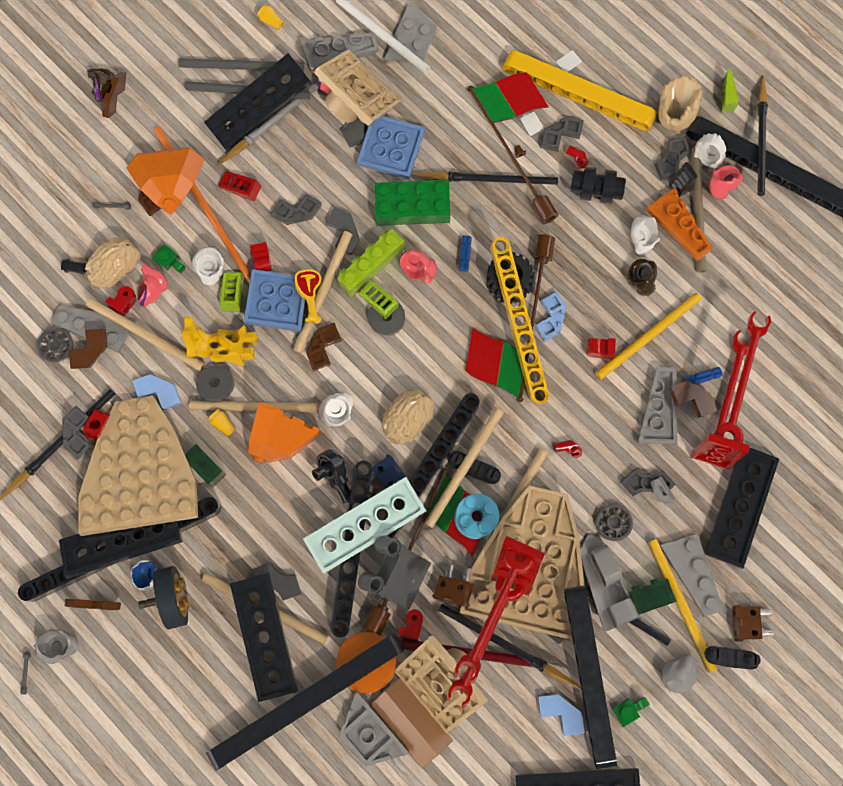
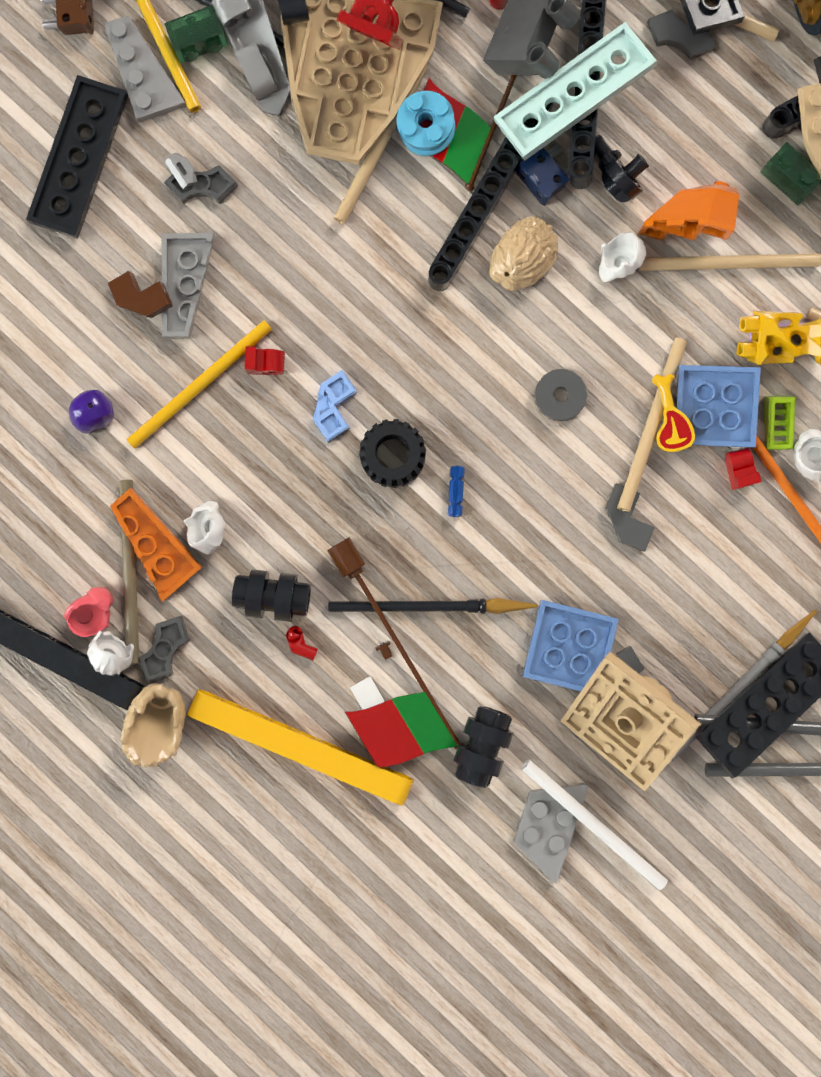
camera: 175 degrees right, 10 degrees up
(211, 374) = (803, 284): dark grey tile -> none
(221, 422) = (774, 235): yellow cone -> none
(250, 190) = (766, 573): red slope -> none
(270, 17) = (764, 848): yellow cone -> none
(303, 212) = (686, 545): dark grey tile -> none
(323, 338) = (653, 341): reddish brown tile -> none
(324, 49) = (669, 796): light grey wing -> none
(374, 259) = (584, 471): lime brick -> none
(383, 312) = (581, 407): lime slope -> none
(412, 202) = (535, 559): green brick -> none
(418, 266) = (519, 464): coral hair -> none
(454, 590) = (451, 27): reddish brown piece -> none
(457, 78) = (479, 757): none -> black piece
(464, 467) = (444, 186): tan piece -> none
(477, 470) = (430, 191): black piece -> none
(499, 361) = (402, 339): flag -> none
(521, 311) = (381, 393): yellow beam -> none
(565, 127) = (318, 691): dark grey tile -> none
(569, 61) = (316, 796): white sticker -> none
(570, 447) = (303, 225): red arm -> none
(614, 522) = (244, 130): flat silver wheel -> none
(643, 276) = (207, 464): dark brown hair -> none
(684, 179) = (149, 608): black slope -> none
(704, 376) = (125, 330): blue axle -> none
(716, 448) = (96, 208): red piece -> none
(727, 324) = (90, 419): none -> dark purple helmet
(729, 93) = (81, 750): lime slope -> none
(762, 112) = (34, 721): black piece -> none

